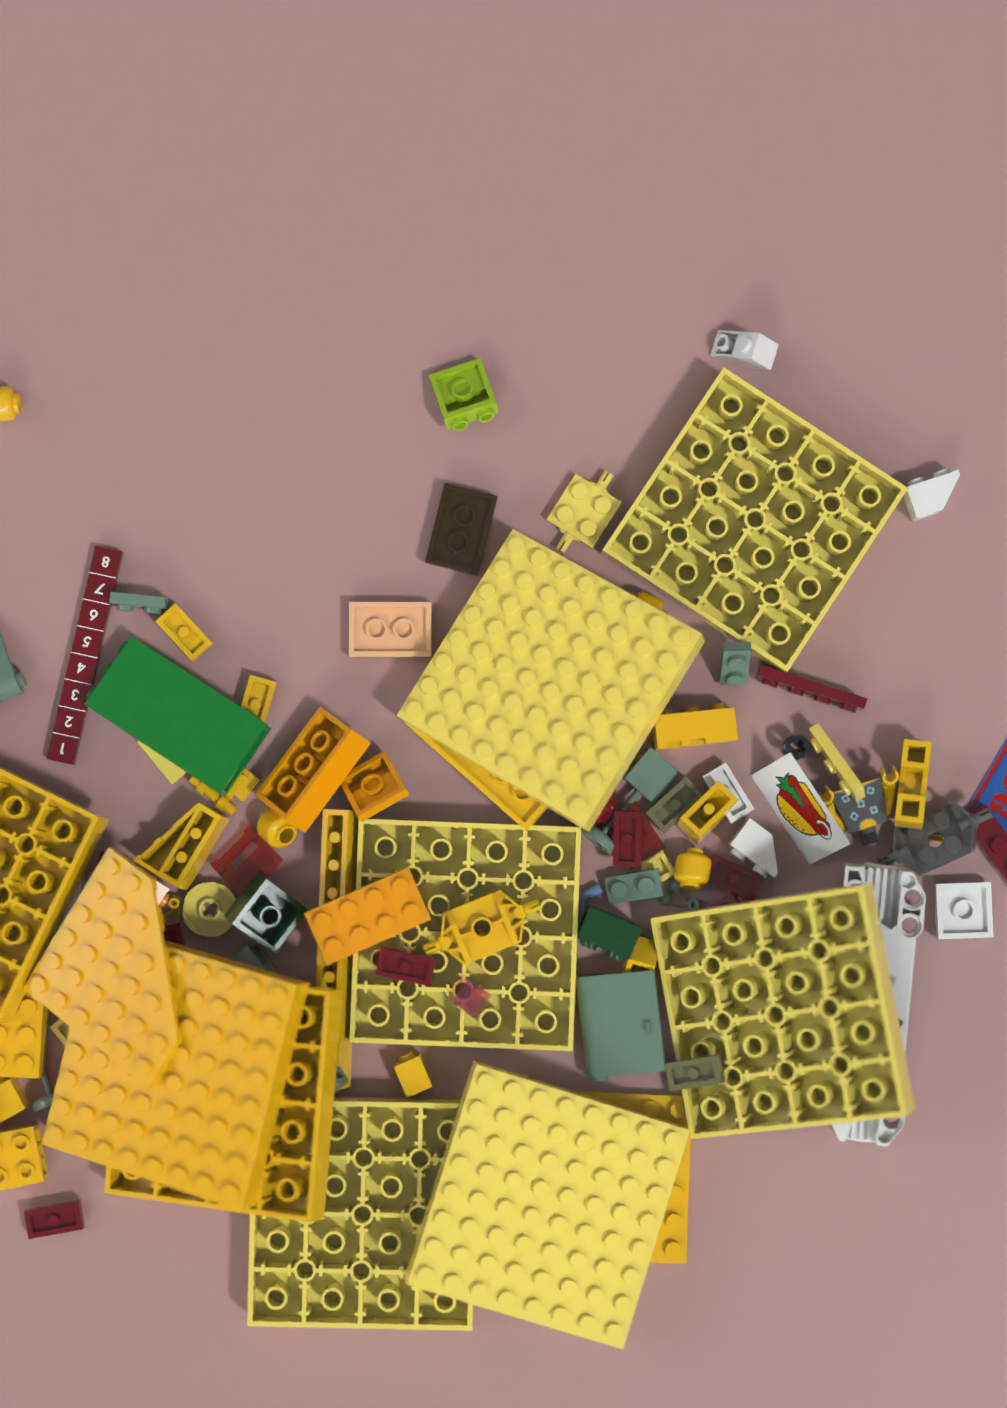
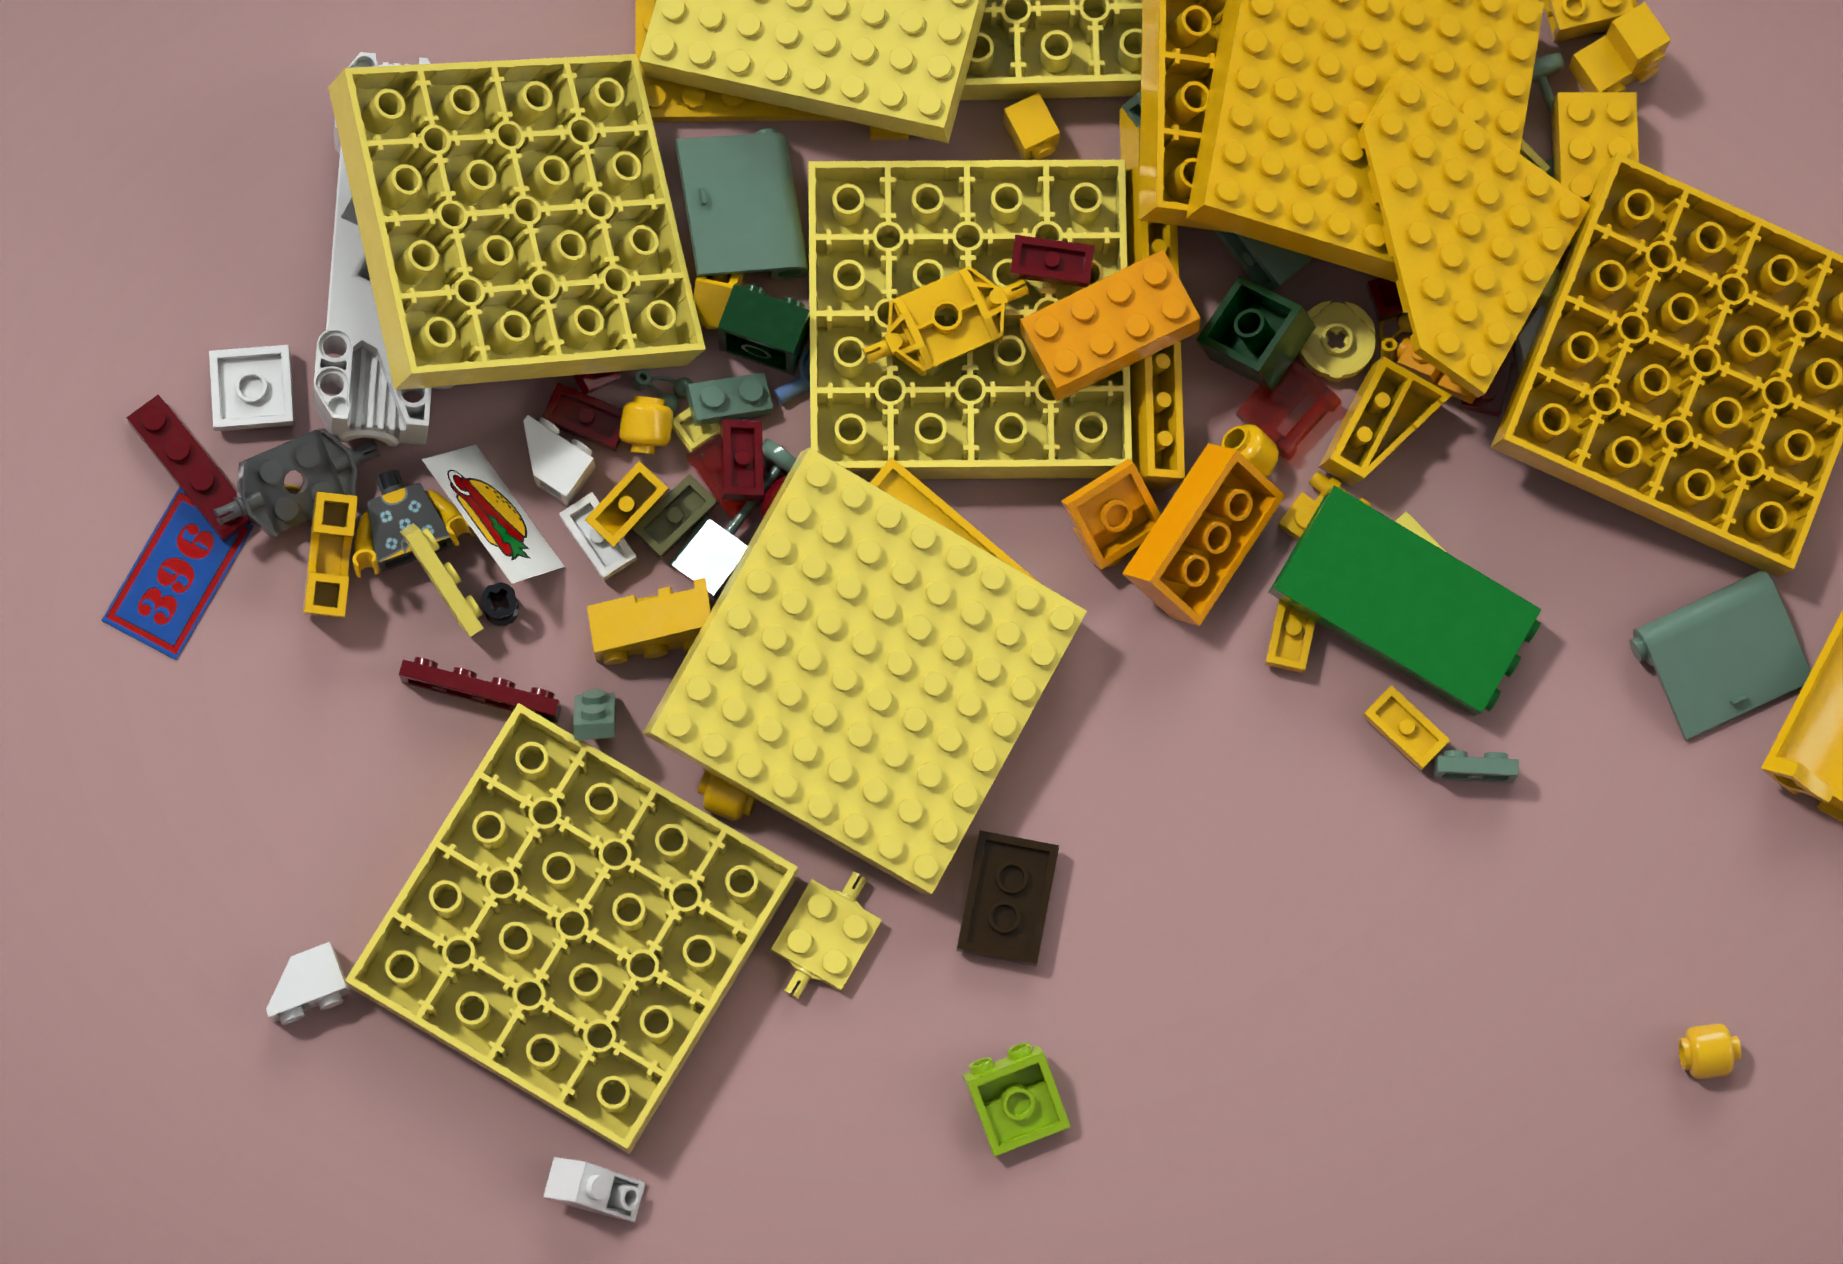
camera: 175 degrees right, 10 degrees down
(84, 655) = (1548, 691): dark red tile -> none
(390, 629) = (1103, 746): light nougat plate -> none
(471, 998) = (956, 224): clear pink plate -> none
(695, 1072) = (635, 136): olive plate -> none

